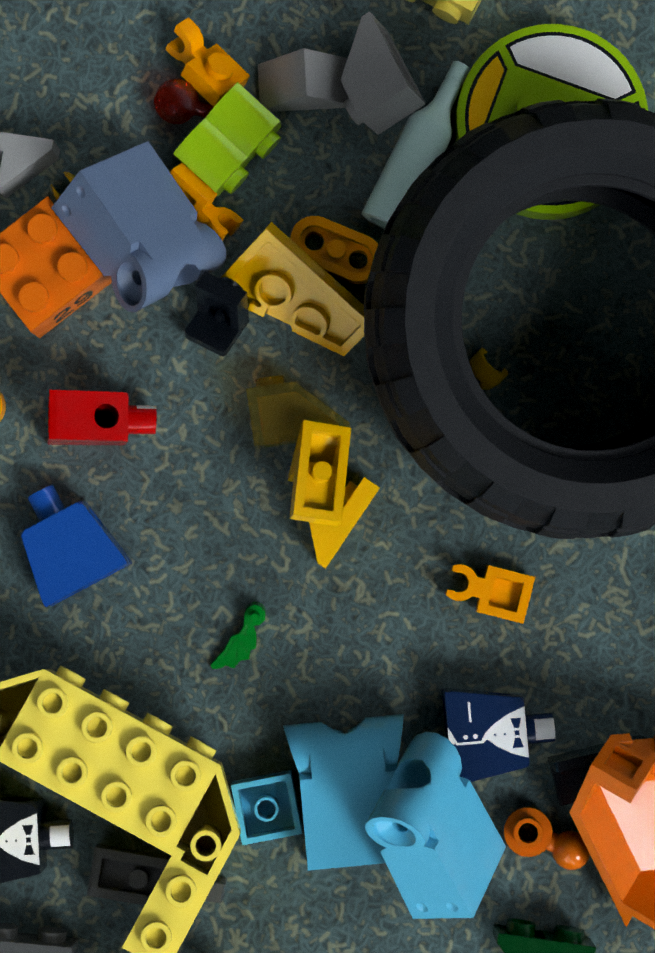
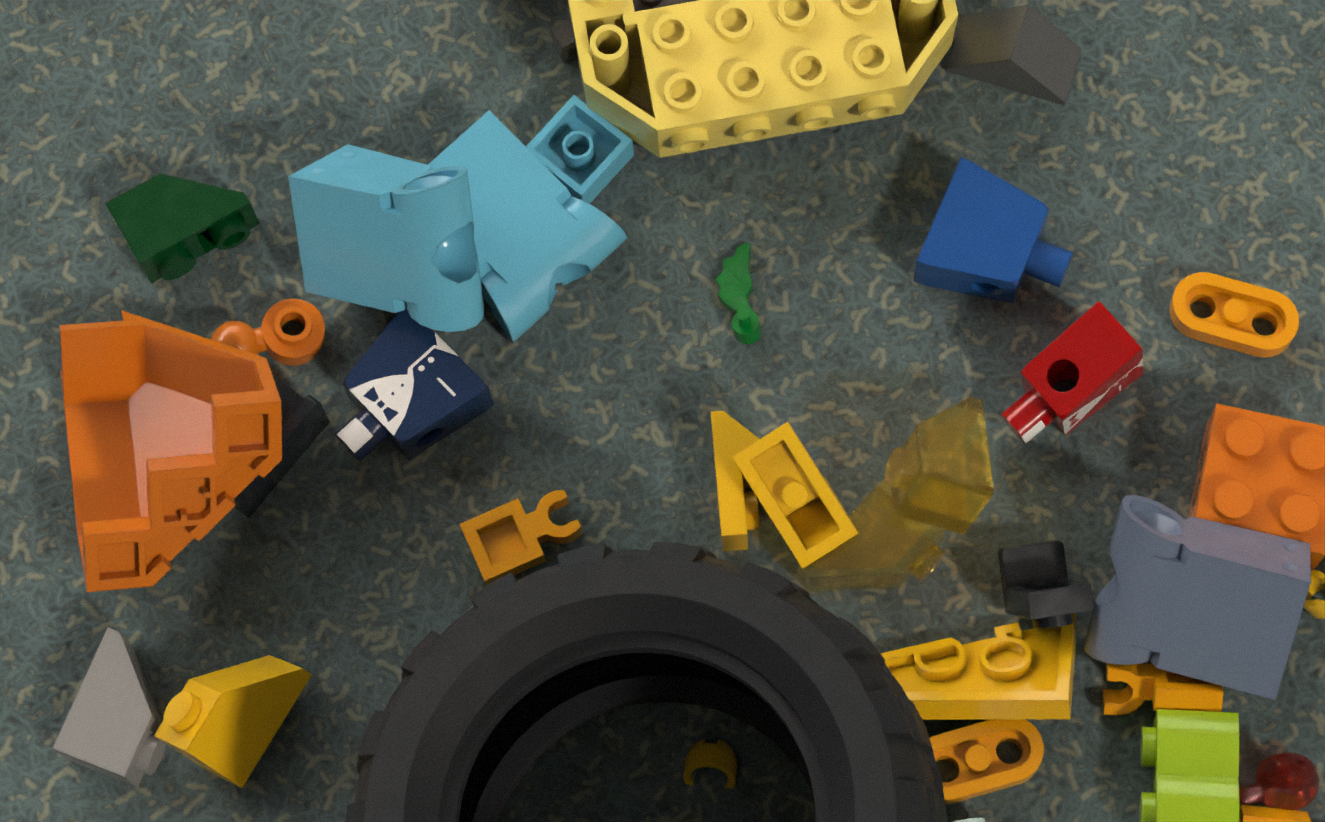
camera: 145 degrees right, 15 degrees down
(220, 419) = (943, 469): none -> clear yellow slope

